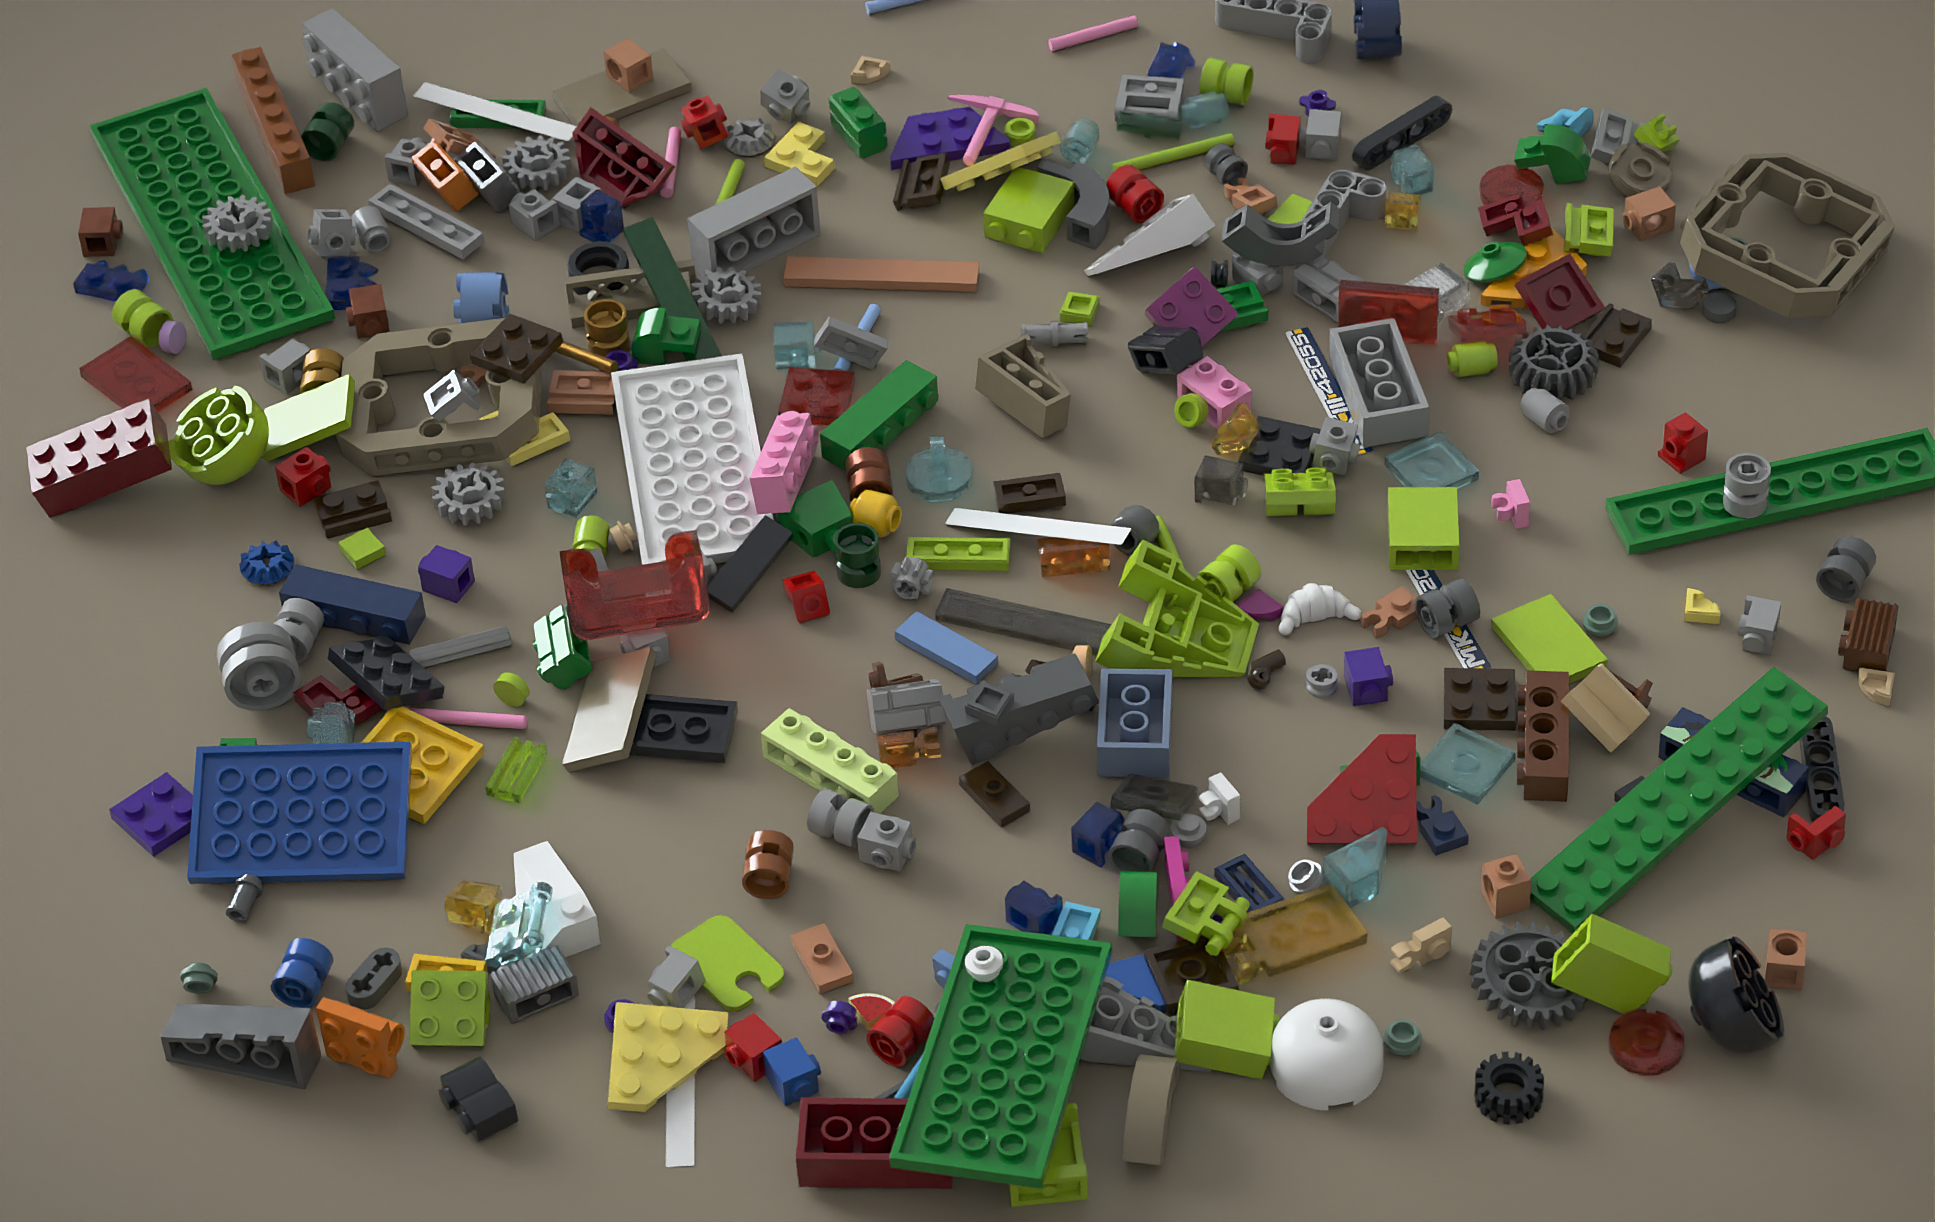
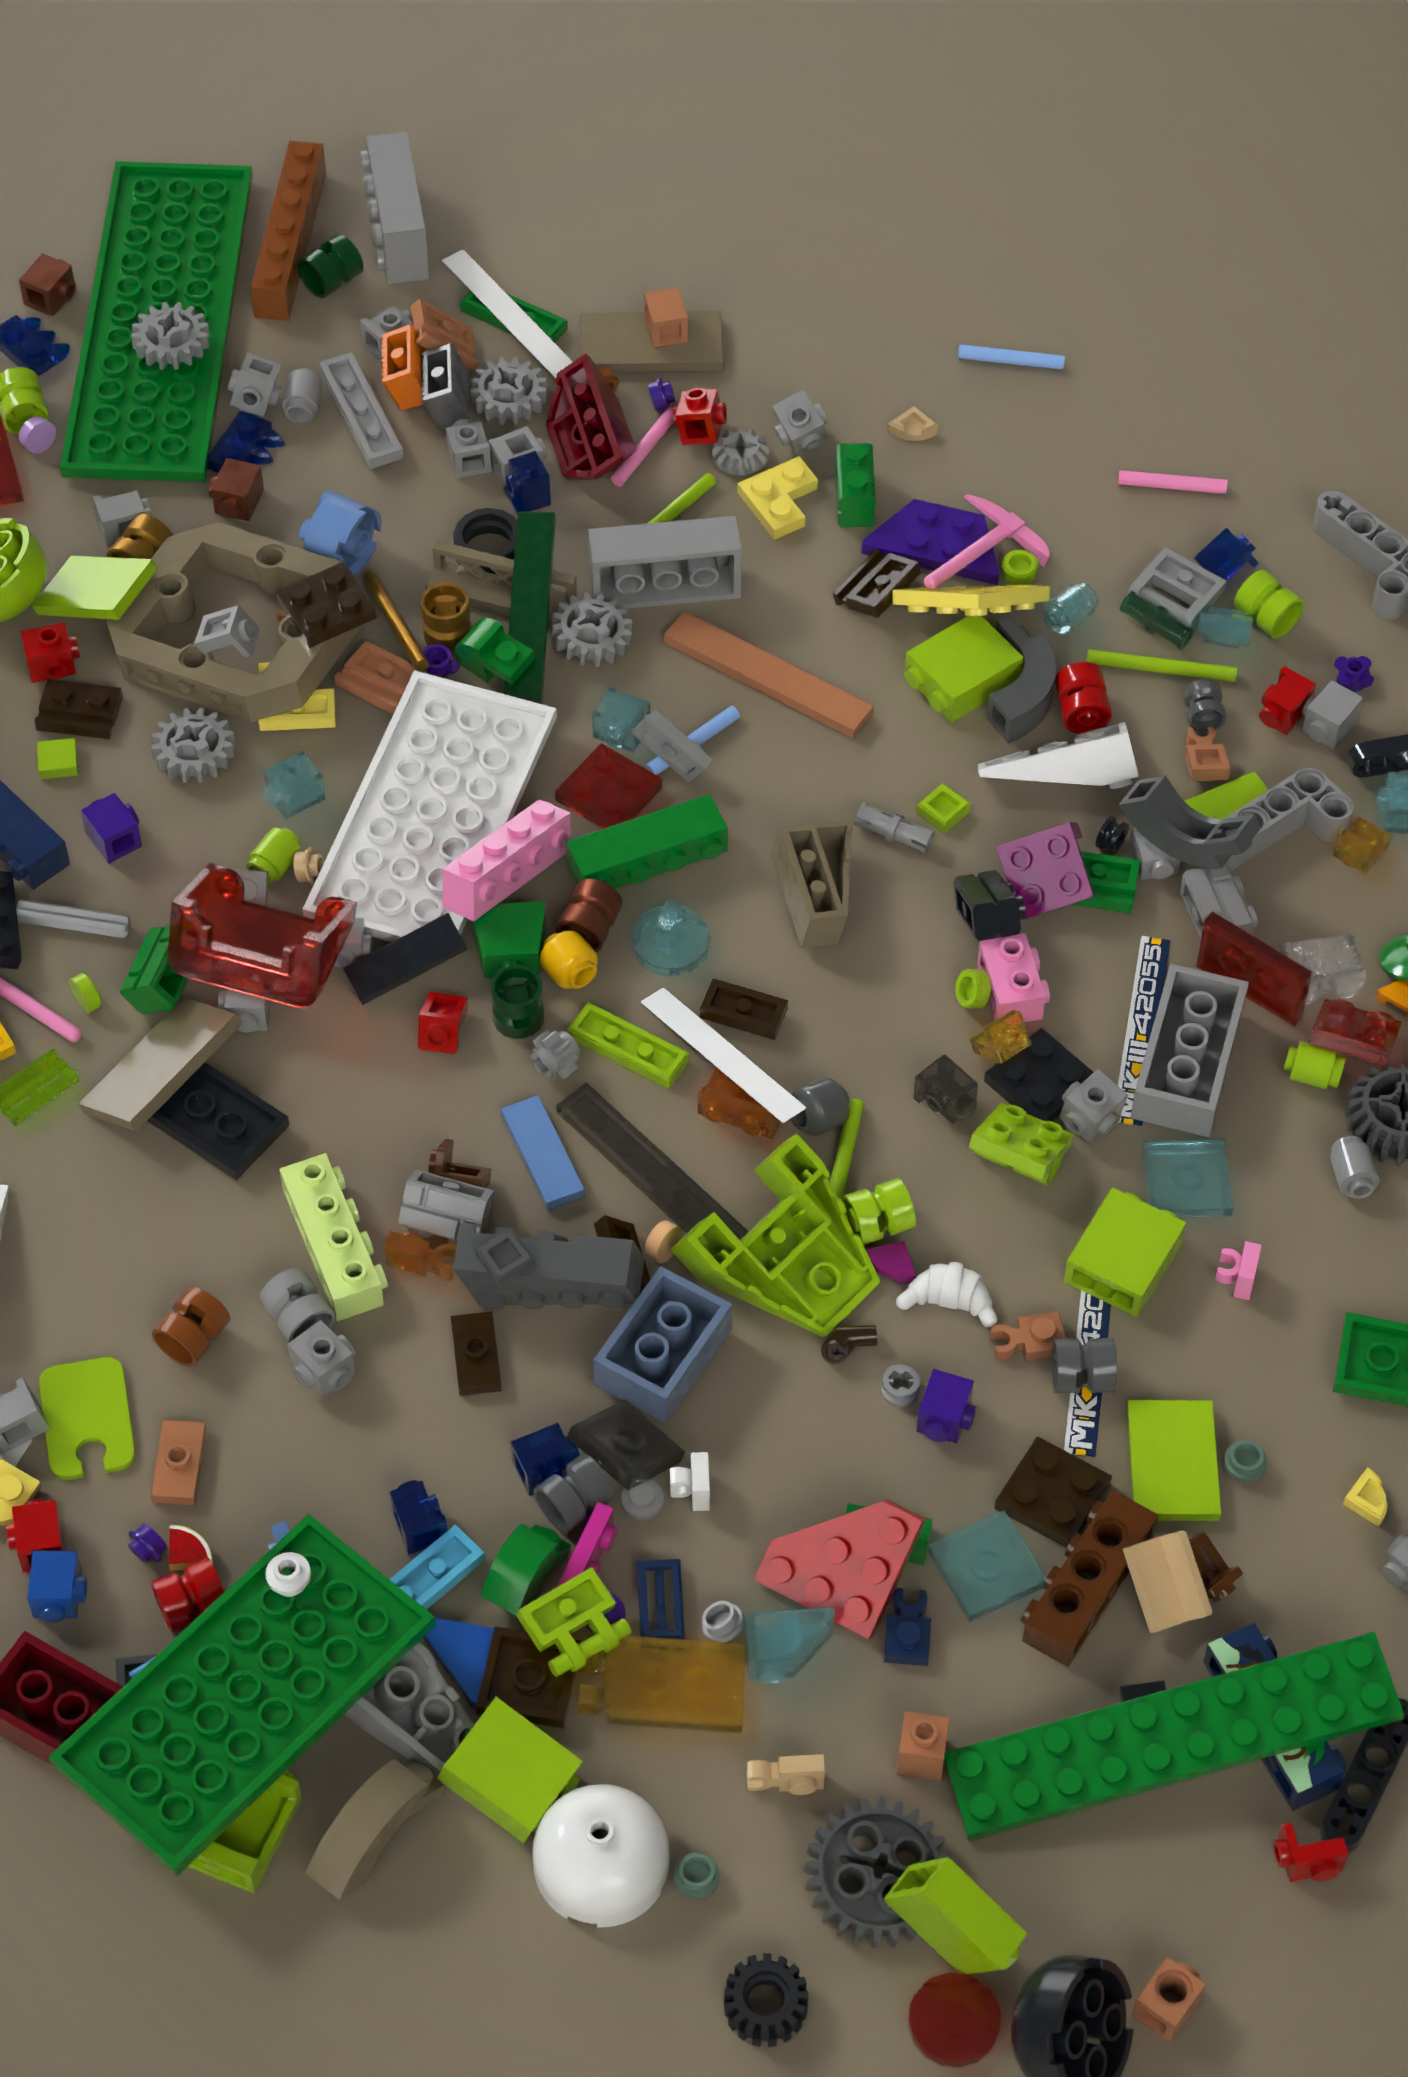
camera: 25 degrees right, 10 degrees up
(660, 120) = (661, 394): none -> dark purple plate

